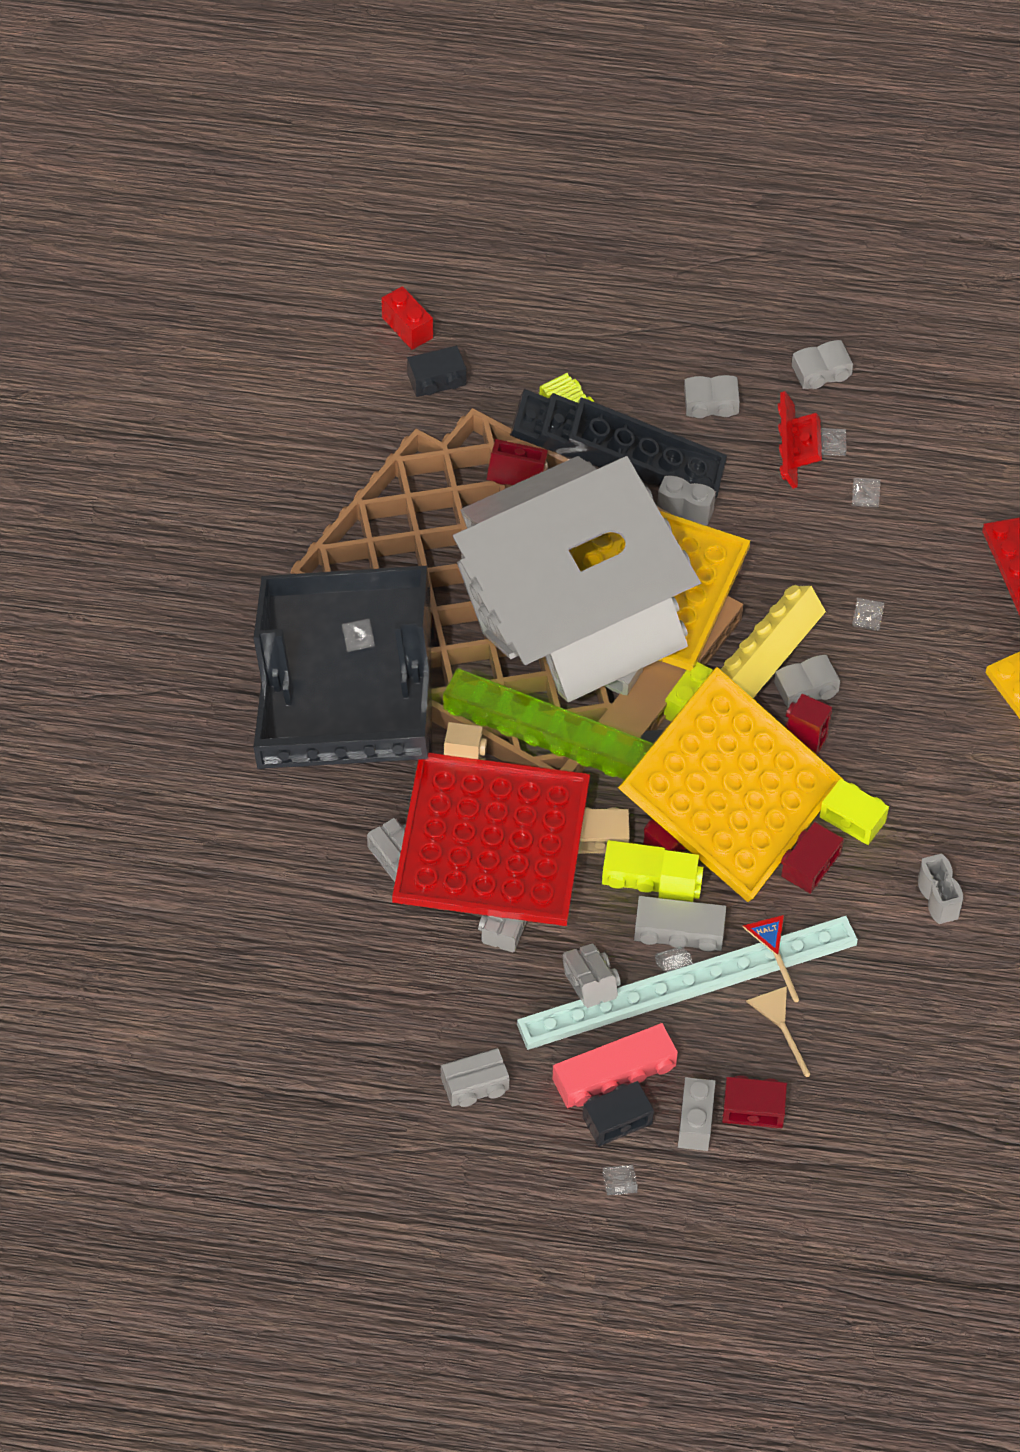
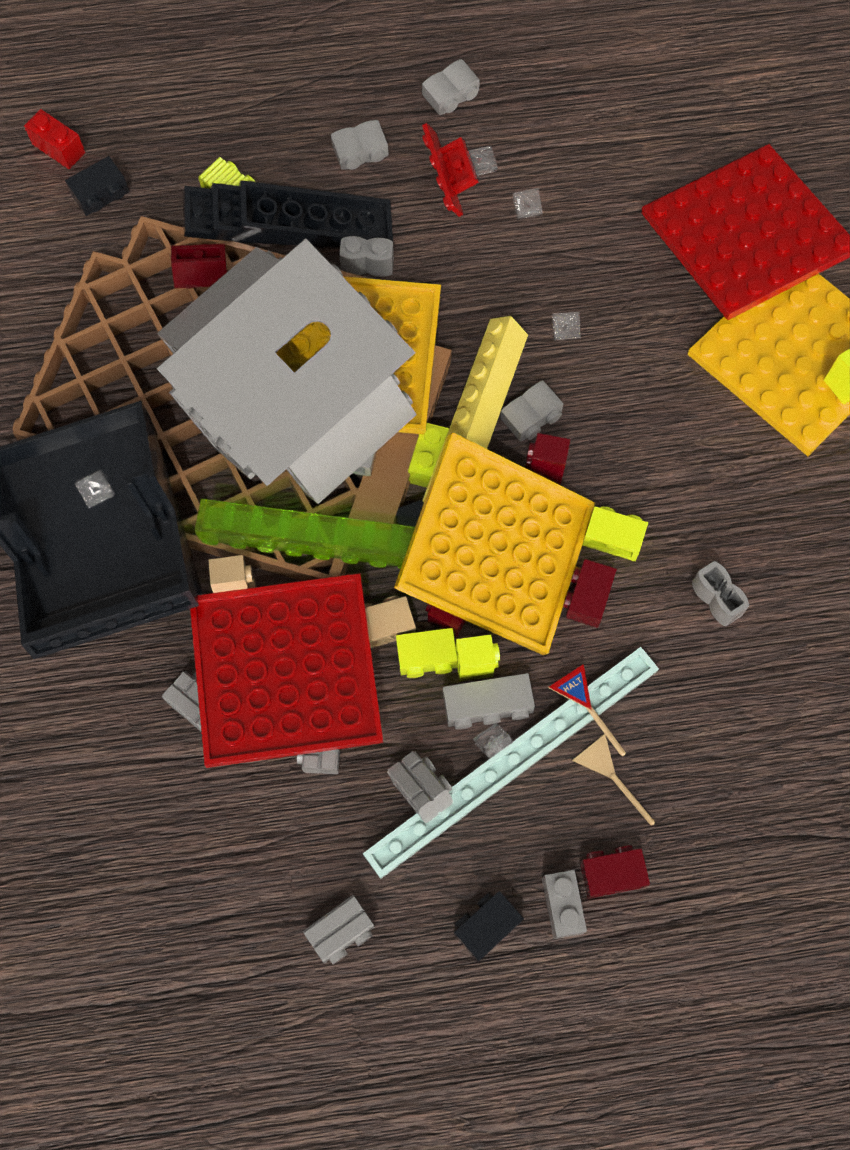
camera: 15 degrees left, 15 degrees up
(615, 1064) = (470, 874): coral brick -> none
(619, 1180) = (510, 998): clear tile -> none

